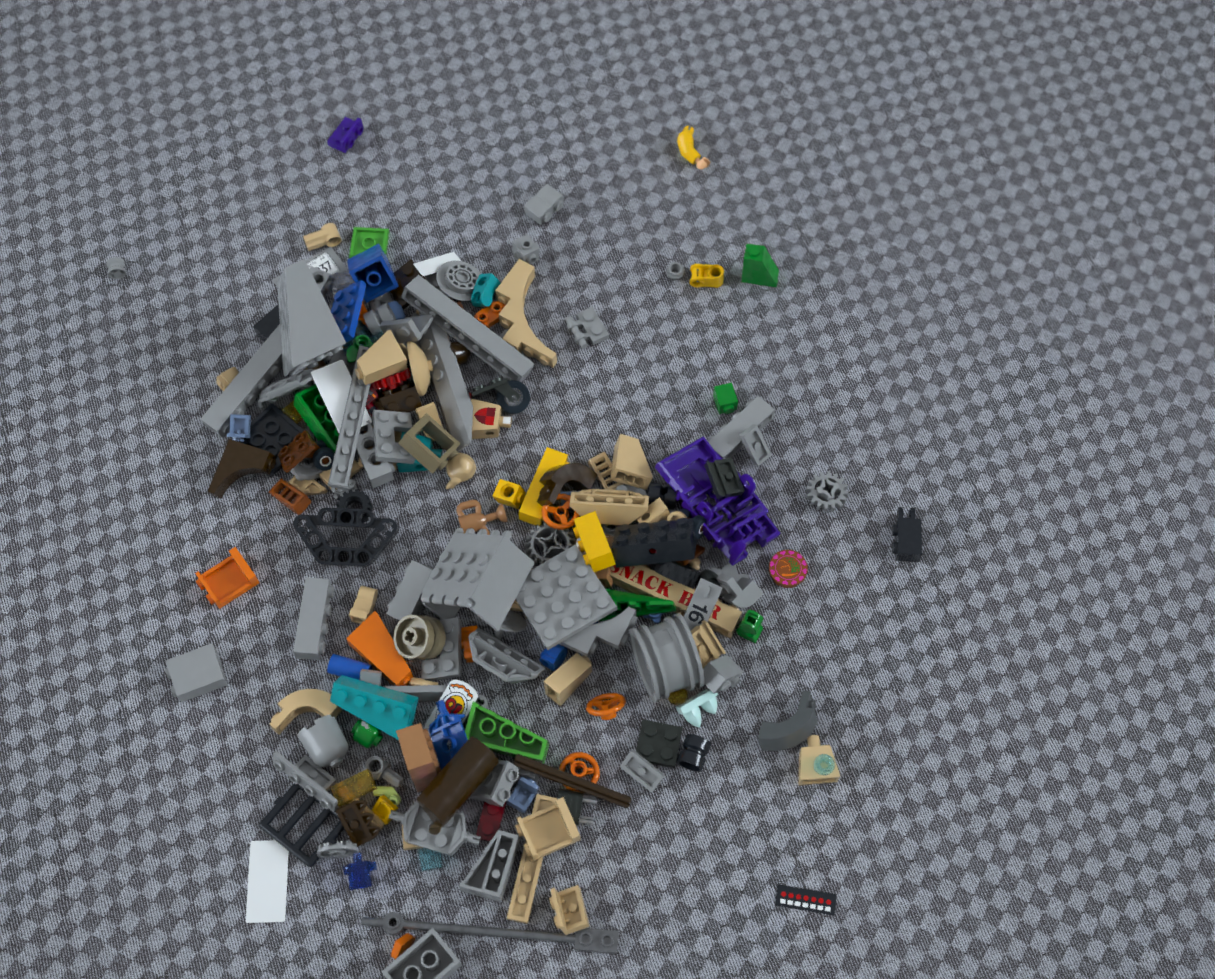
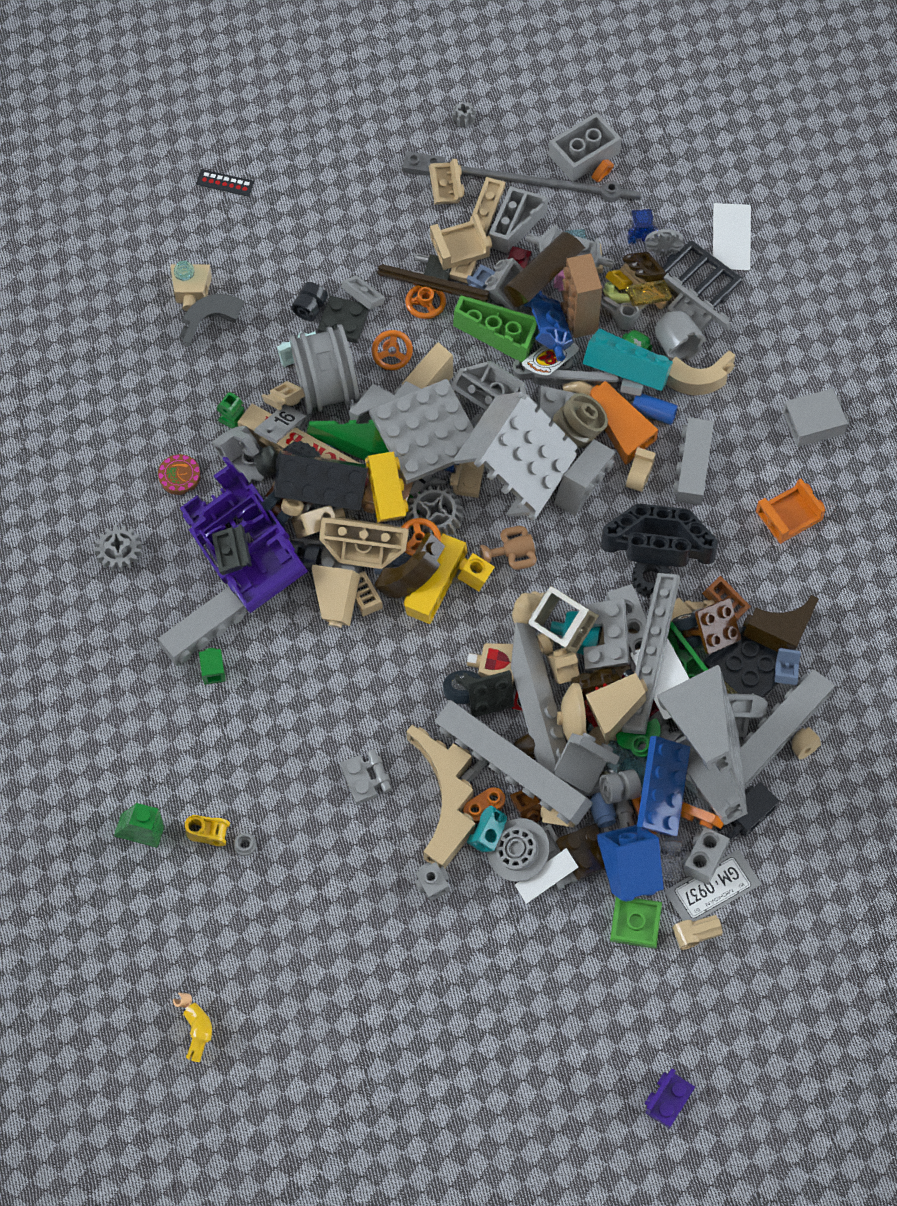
camera: 175 degrees left, 0 degrees up
(544, 204) = (402, 954): light grey brick -> none
(721, 674) = (270, 362): light grey brick -> none
(755, 445) = (188, 601): light grey plate -> none
(907, 537) = (42, 492): black hinge -> none

